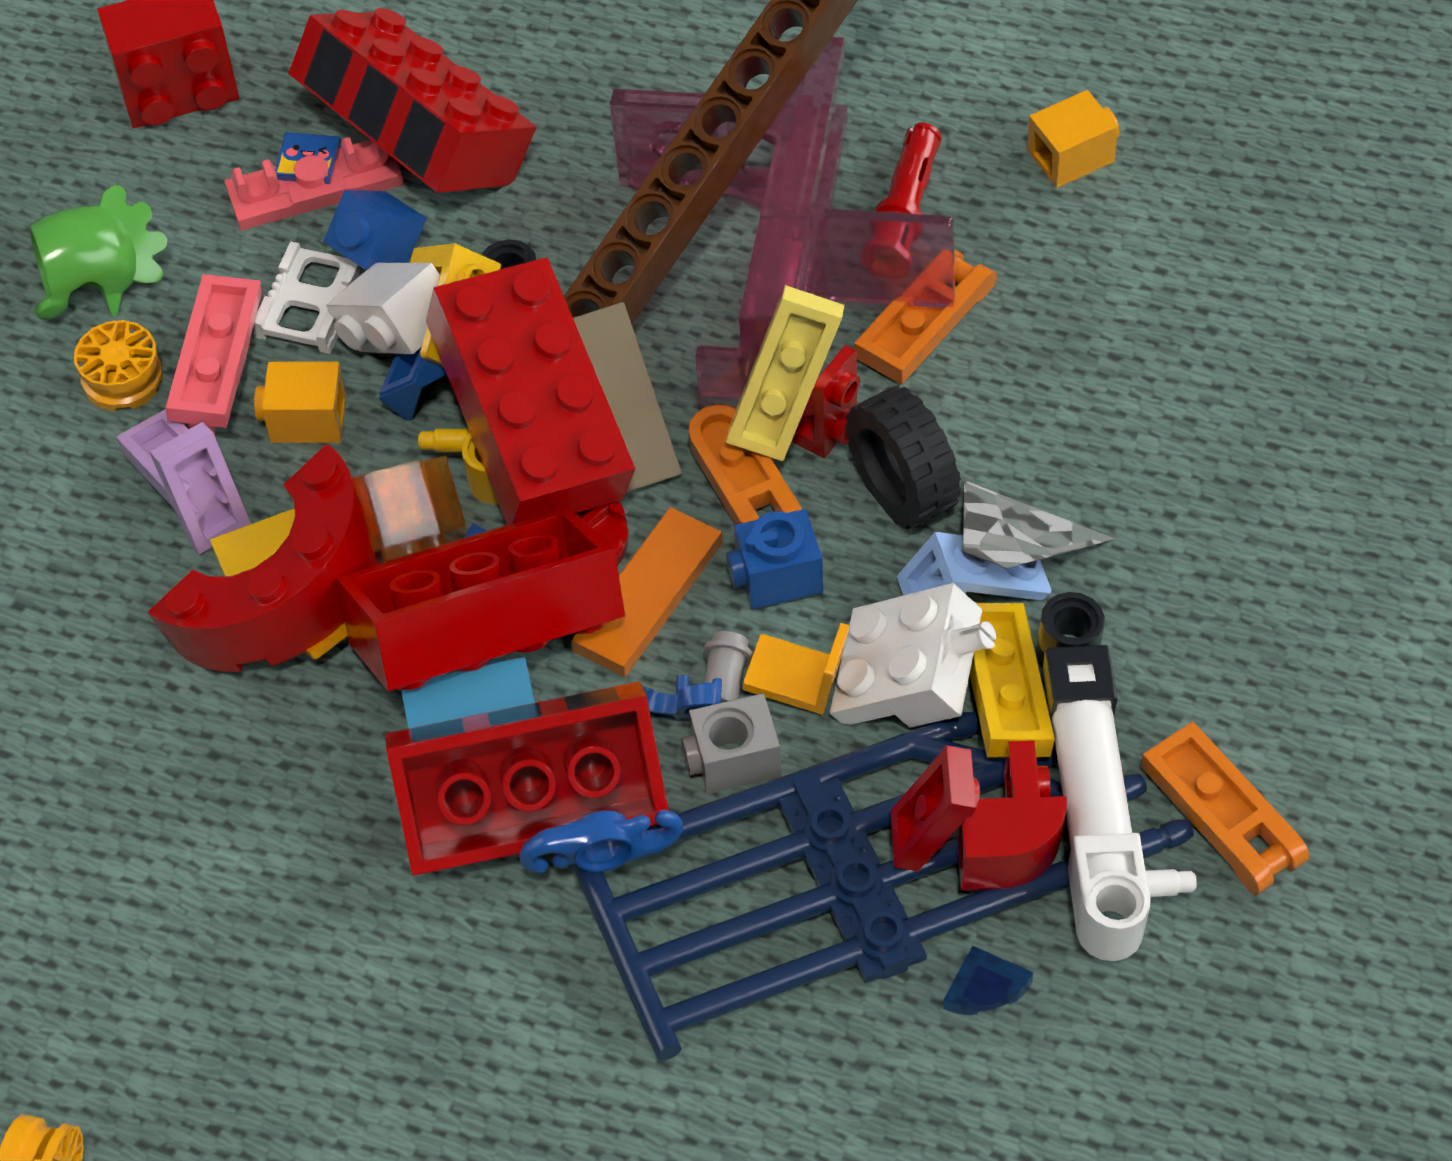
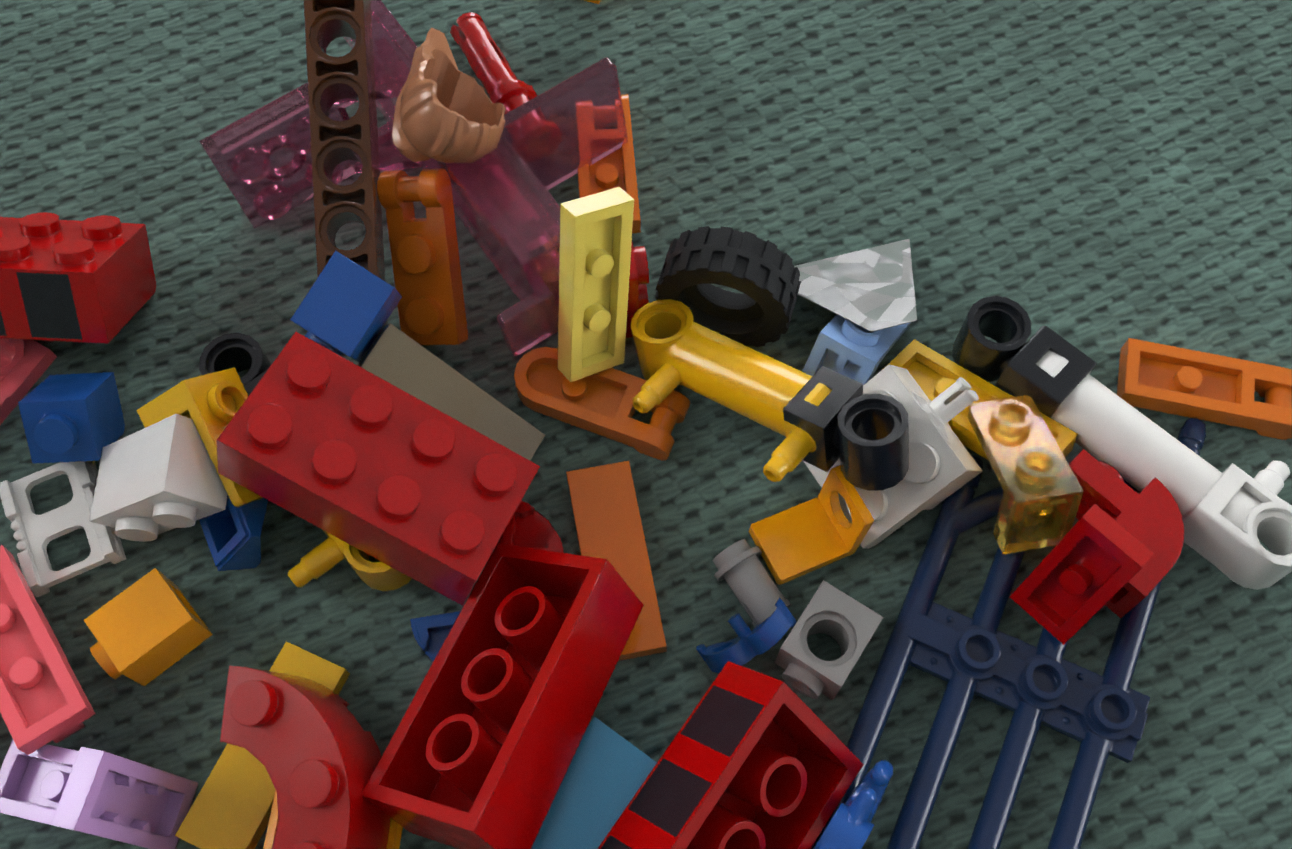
camera: 45 degrees left, 10 degrees up
(409, 506) = (360, 664): clear orange brick -> none
(600, 268) = (346, 307): none -> blue brick
(703, 281) = (425, 256): none -> orange plate
(776, 558) = (705, 450): blue brick -> none
(784, 171) = (443, 109): none -> nougat hair
(861, 568) = (818, 414): none -> piece
(986, 984) = (1203, 680): clear blue tile -> none
(987, 719) = (1036, 478): none -> clear yellow bracket

